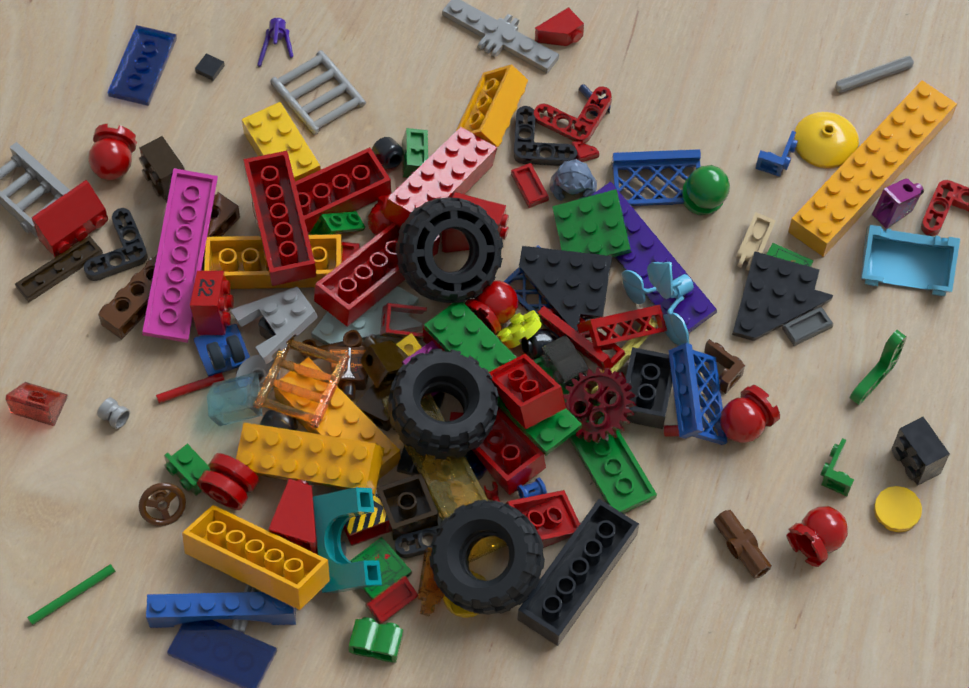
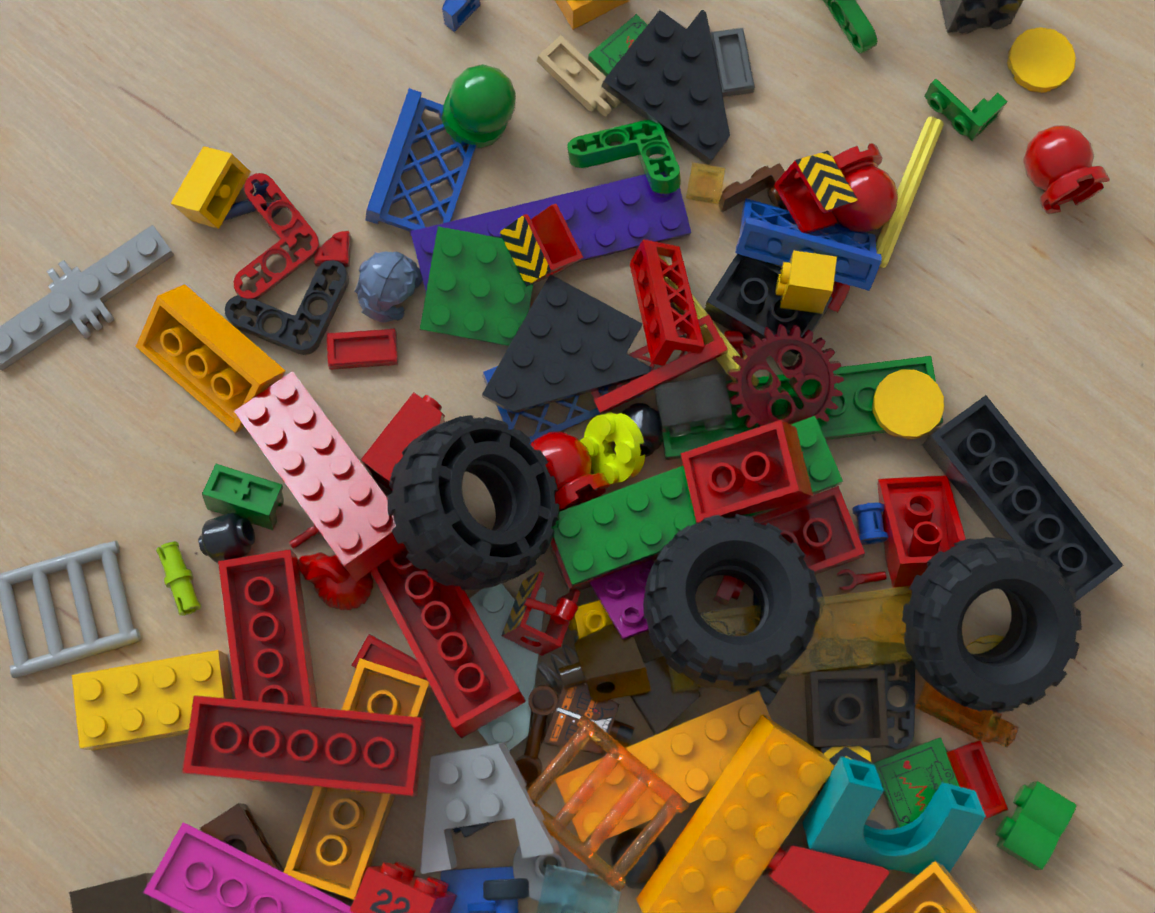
camera: 70 degrees left, 15 degrees up
(338, 223) = (327, 658): green bracket -> none
(355, 138) = (178, 578): none -> lime pin
(405, 325) = (560, 614): none -> red hand
(560, 29) = (111, 204): red slope -> none
(592, 72) = (211, 187): none -> yellow brick
(609, 248) = (541, 245): none -> piece
(617, 486) = (908, 404): none -> yellow tile
(661, 278) = (637, 212): medium azure plant -> none
(662, 388) = (806, 281): none -> yellow brick
(717, 332) = (705, 183): none -> clear yellow plate
(727, 287) = (638, 138): none -> green beam
(729, 384) = (814, 191): none -> piece
(742, 544) = (1036, 273): reddish brown piece -> none
(765, 452) = (908, 187): none -> light yellow axle

